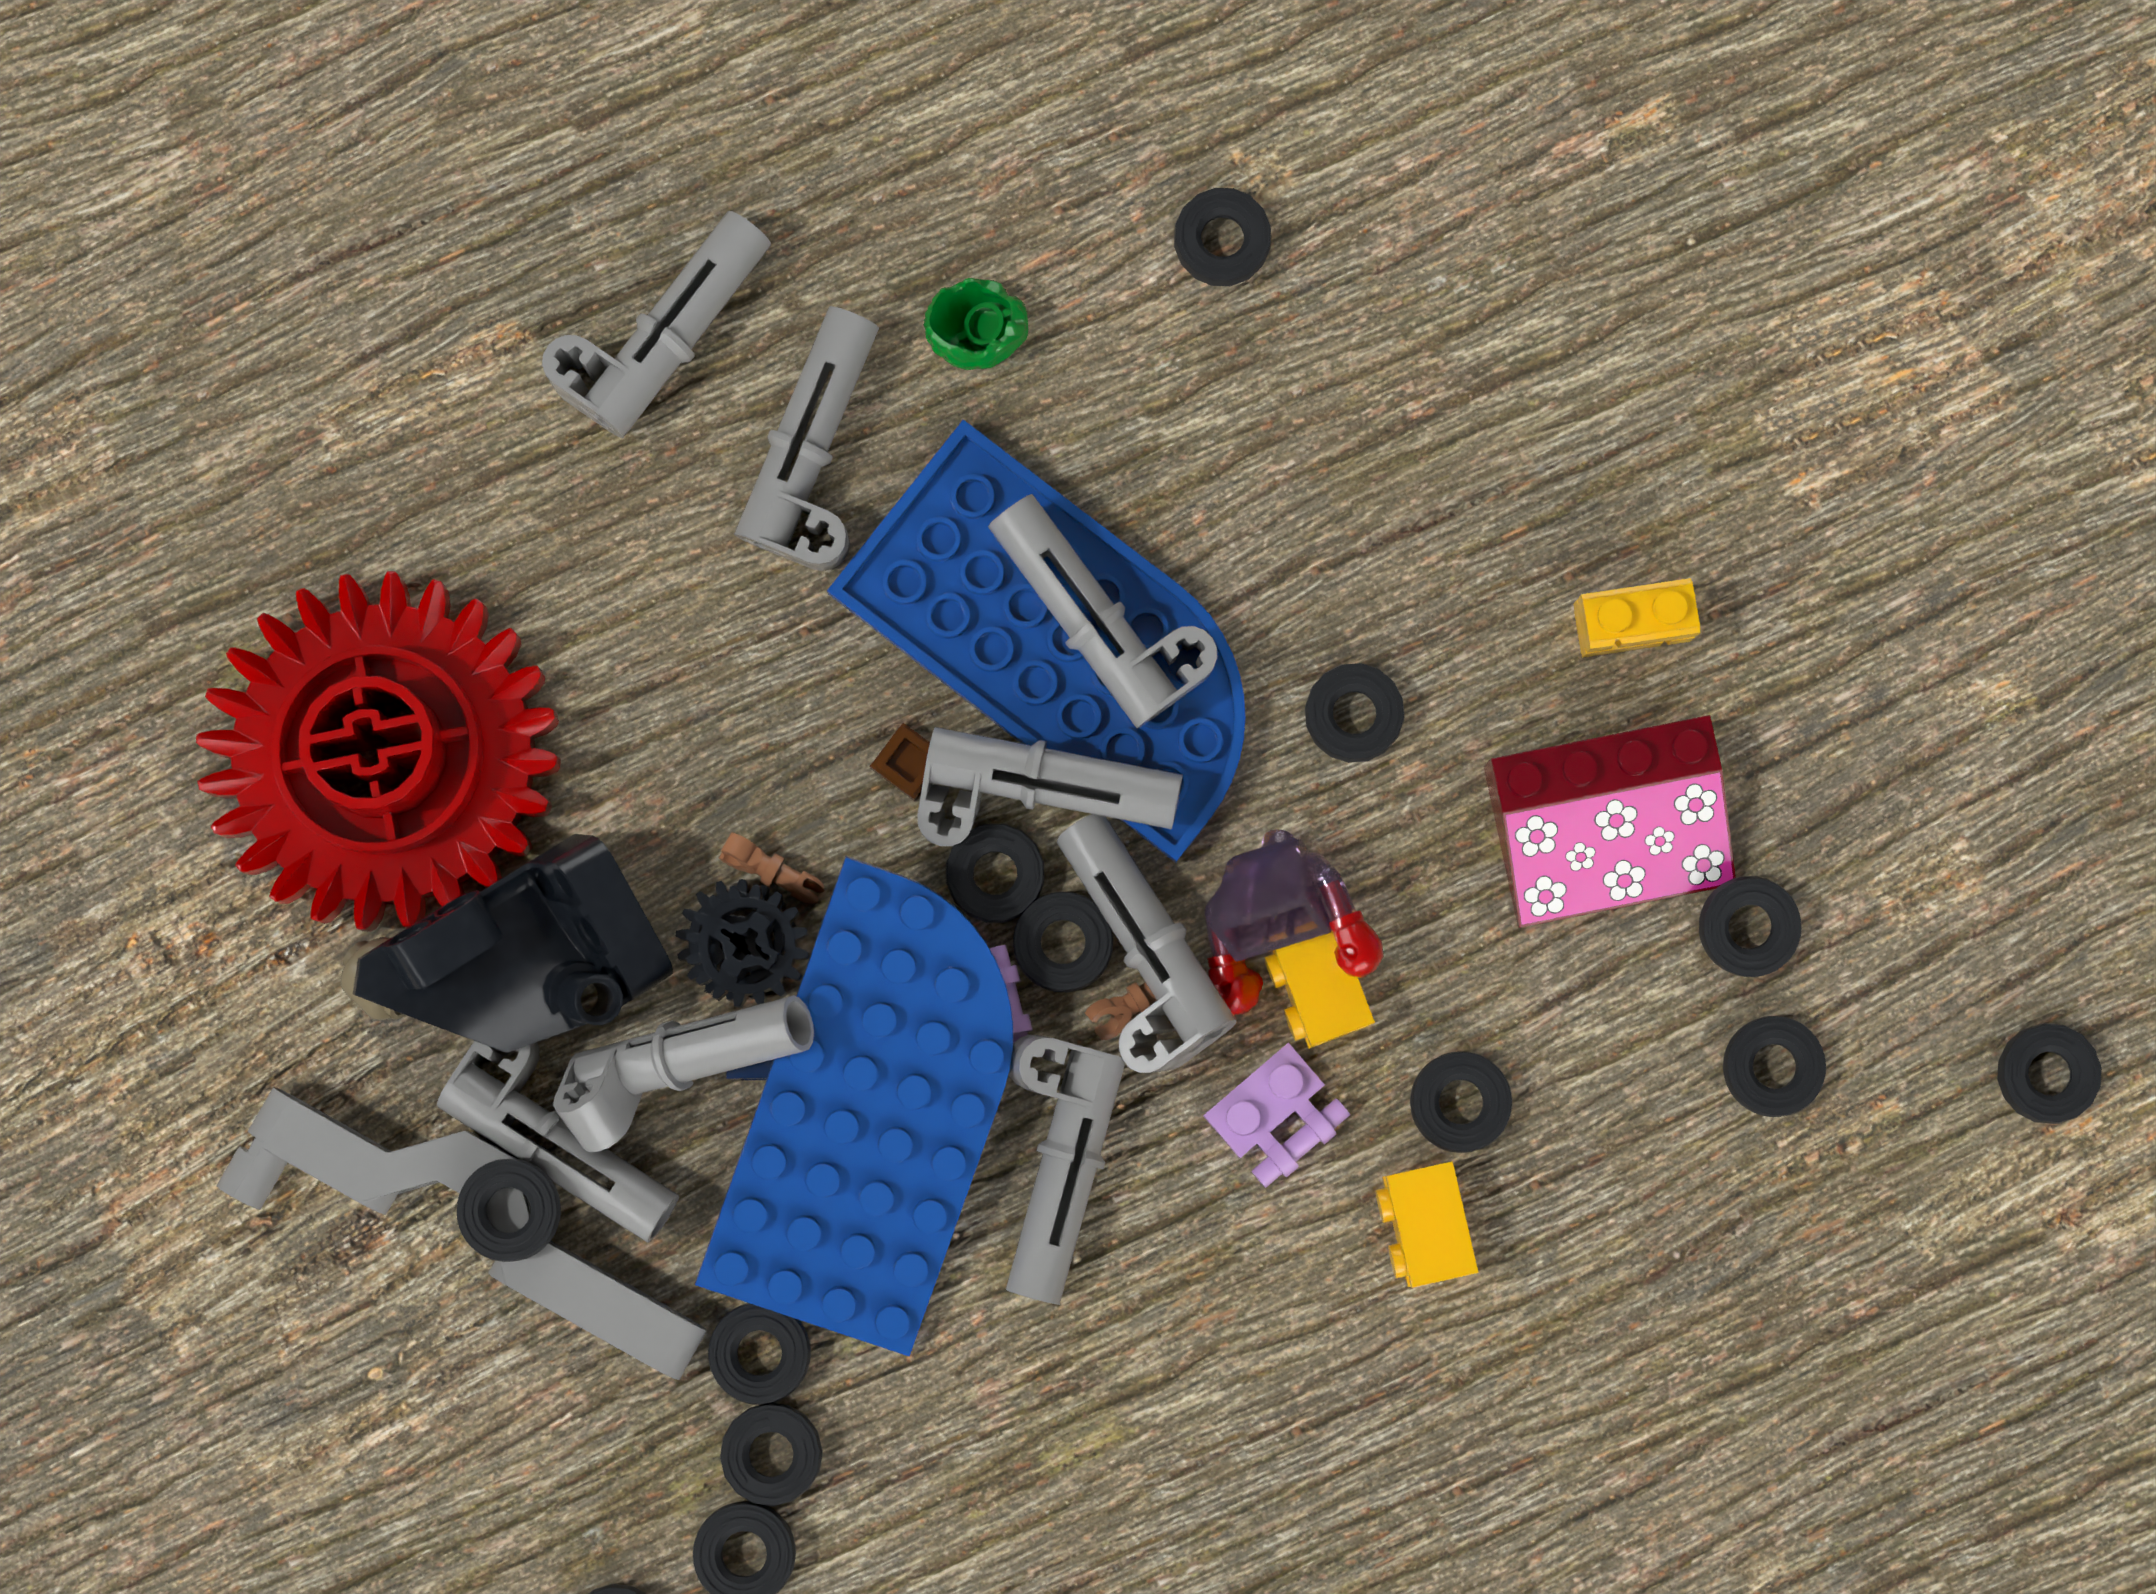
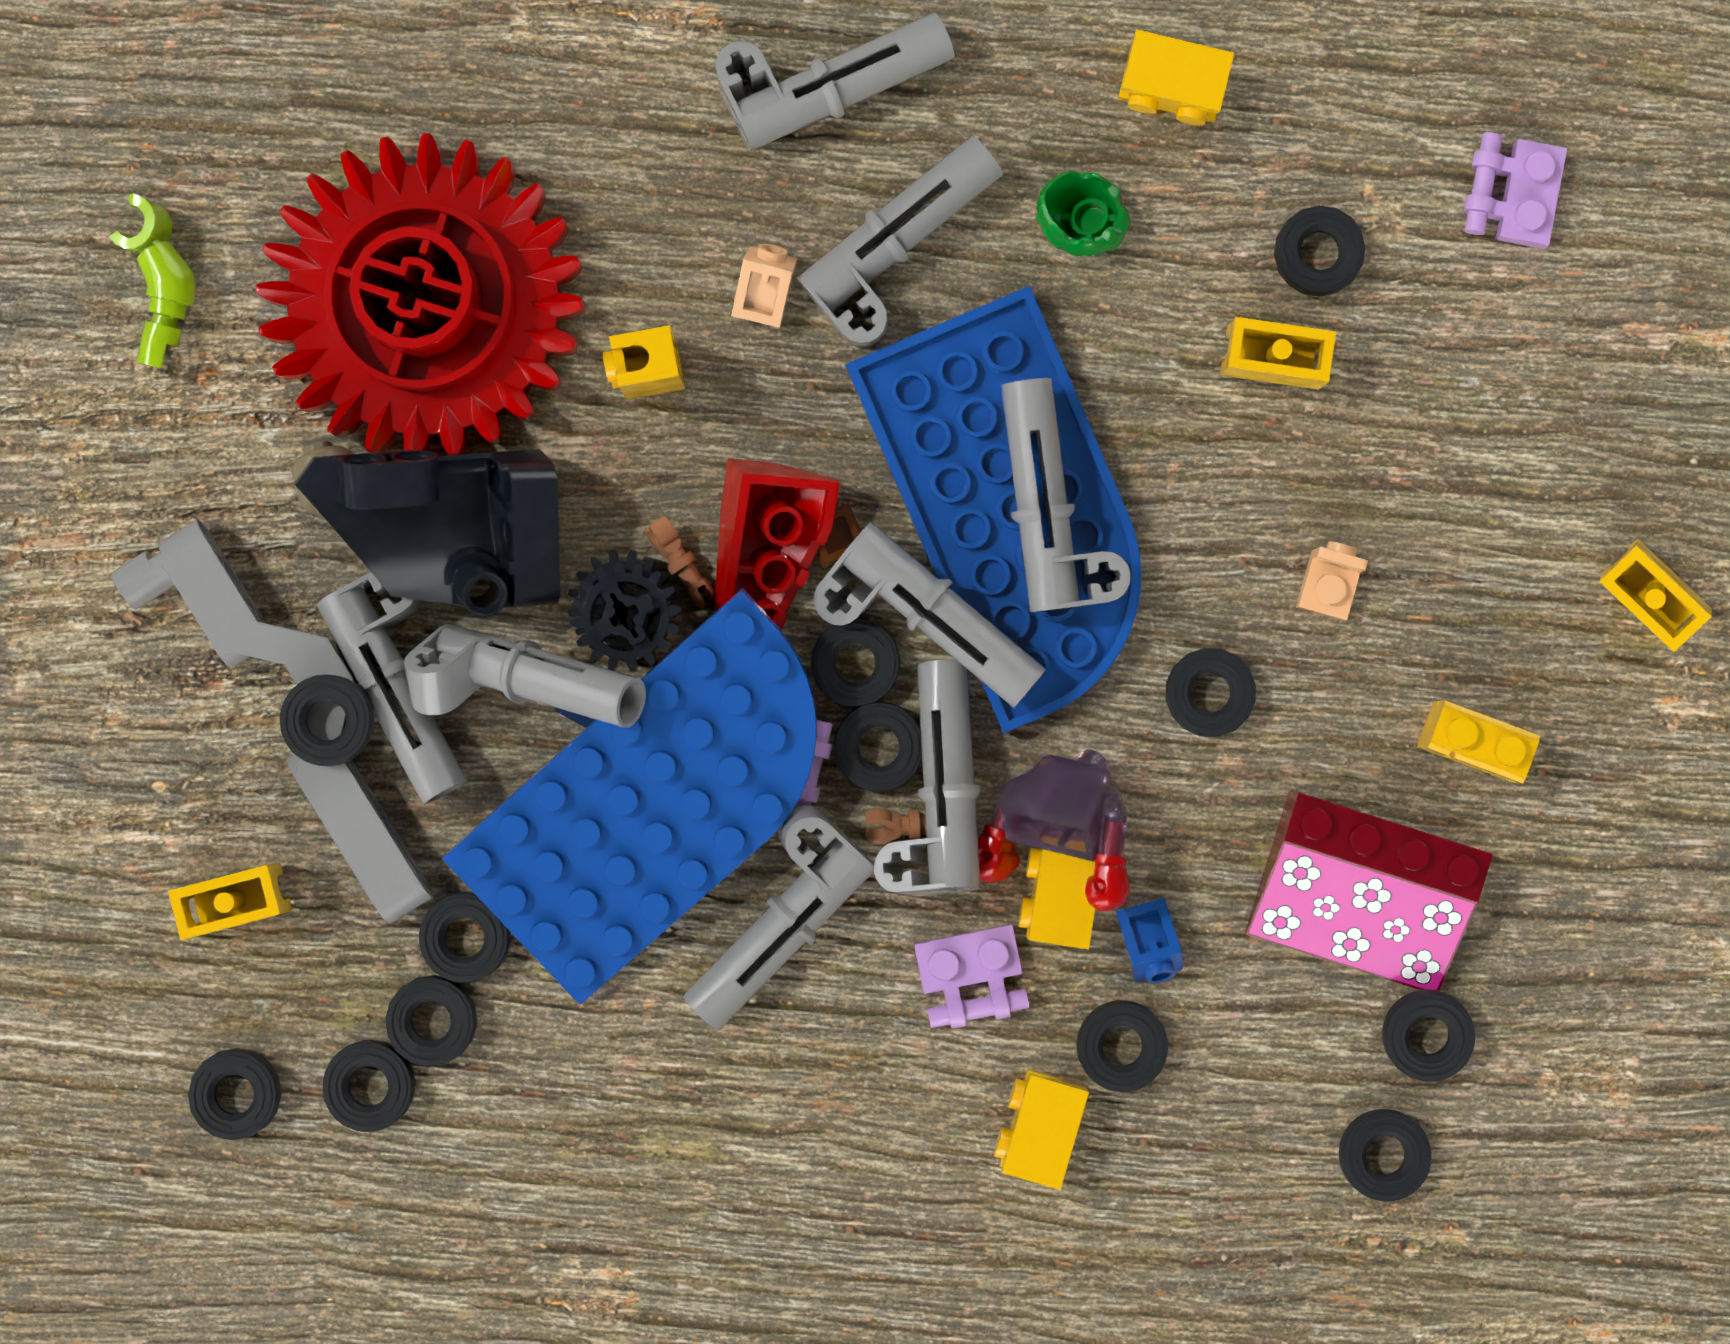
camera: 25 degrees right, 5 degrees up
(121, 871) = (167, 277): none -> lime piece
(507, 1443) = (229, 901): none -> yellow brick
(631, 694) = (644, 363): none -> yellow brick
(706, 558) = (764, 285): none -> light nougat bracket
(843, 790) = (771, 532): none -> red wedge
(993, 148) = (1175, 78): none -> yellow brick
(1236, 353) = (1278, 353): none -> yellow brick
(1391, 73) = (1529, 193): none -> lavender plate
(1410, 542) = (1331, 581): none -> light nougat bracket
(1431, 984) = (1150, 941): none -> blue bracket
(1725, 385) = (1656, 595): none -> yellow brick
(2082, 1063) = (1628, 1292): black tyre -> none

